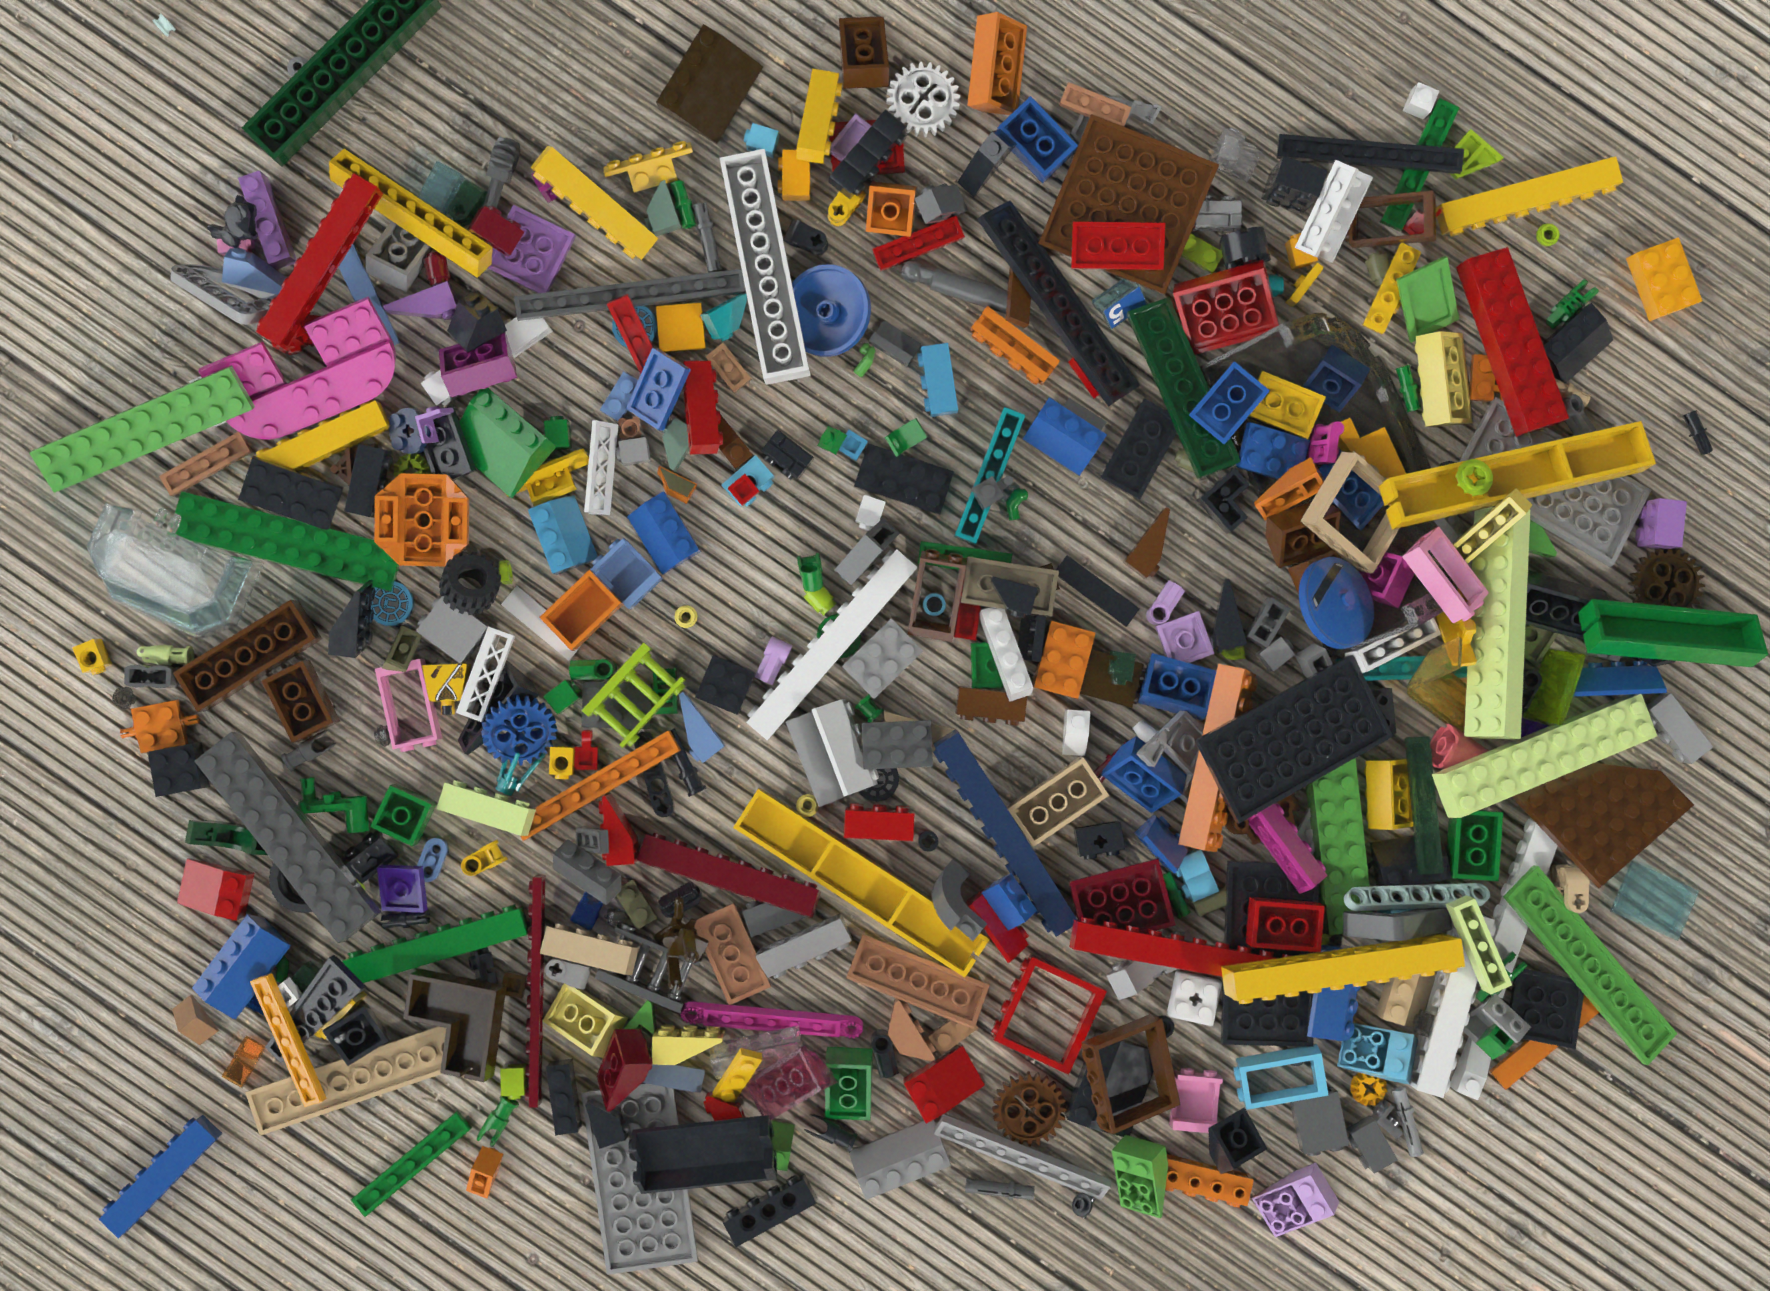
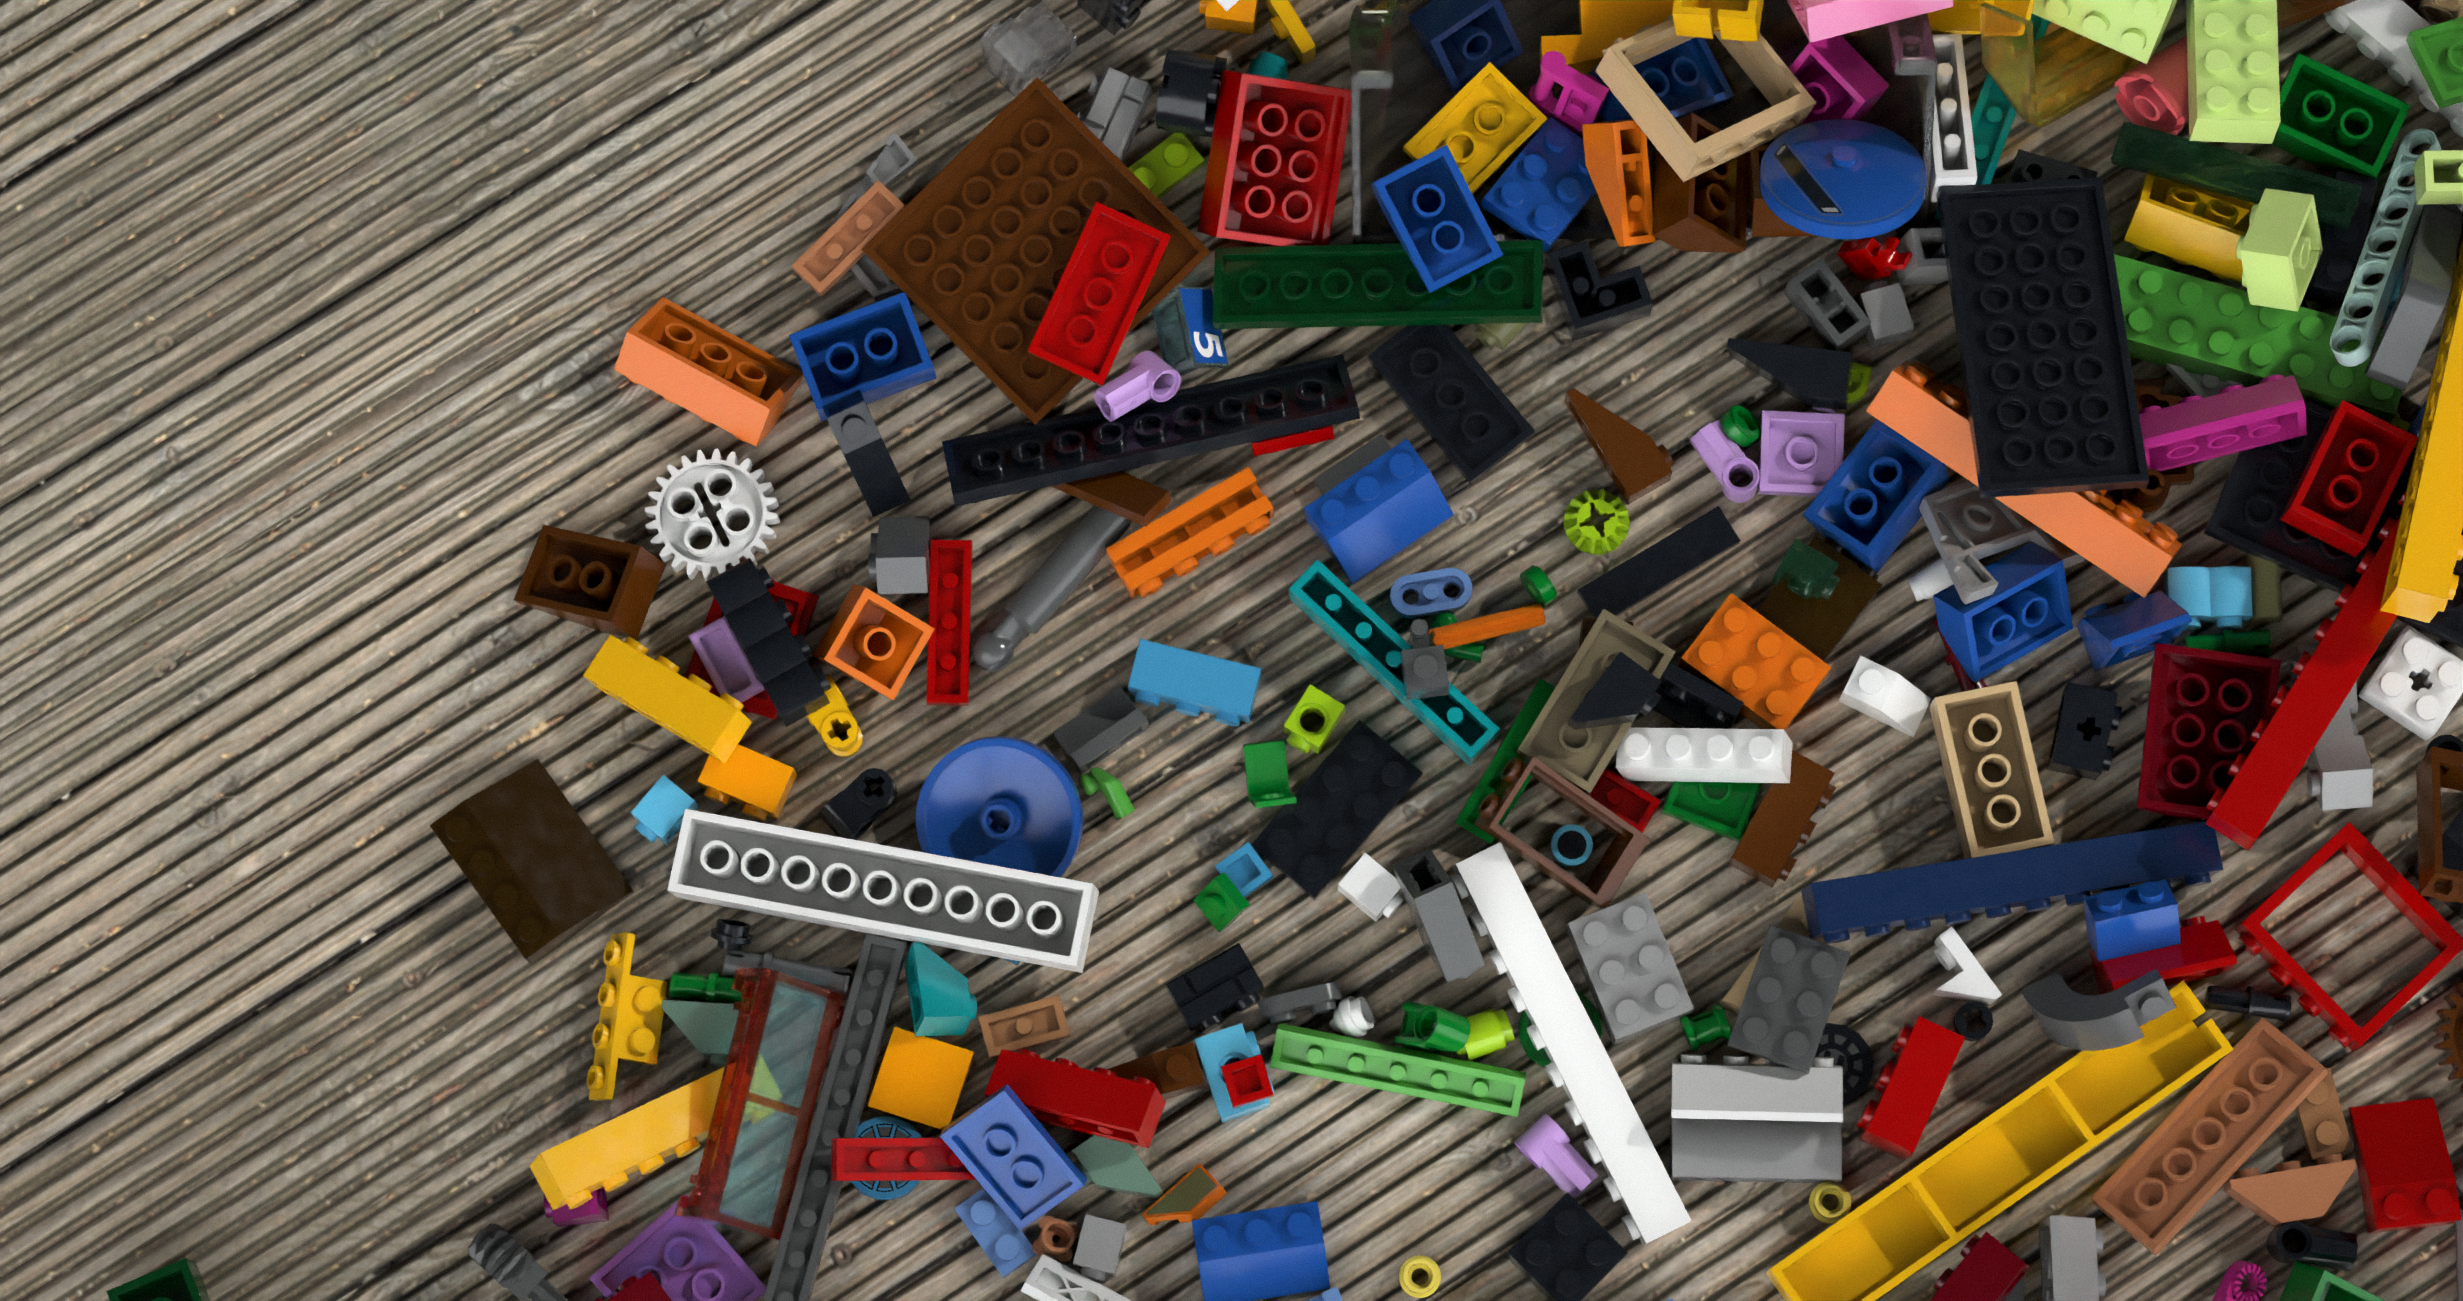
camera: 65 degrees left, 10 degrees down
(632, 252) = (763, 1104): none -> windscreen
(714, 201) = (731, 934): none -> black plate
(784, 563) = (1398, 1069): none -> bright green plate
(792, 493) = (1318, 998): none -> dark grey plate
(801, 530) = (1352, 1017): none -> white plate
(948, 831) = (1971, 979): none -> white slope
(953, 444) = (1319, 703): none -> lime brick
(994, 975) = (2249, 1002): none -> black axle
(1027, 515) = (1487, 626): none -> orange axle
(1034, 481) = (1429, 589): none -> medium blue plate
(1060, 533) = (1538, 585): none -> green tile
(1084, 289) = (1146, 379): none -> lavender piece
(1107, 539) = (1588, 538): none -> lime gear
(1186, 603) = (1740, 425): none -> green tile
(1302, 636) = (1871, 259): none -> red plate
(1392, 843) = (2280, 249): none -> yellowish green brick

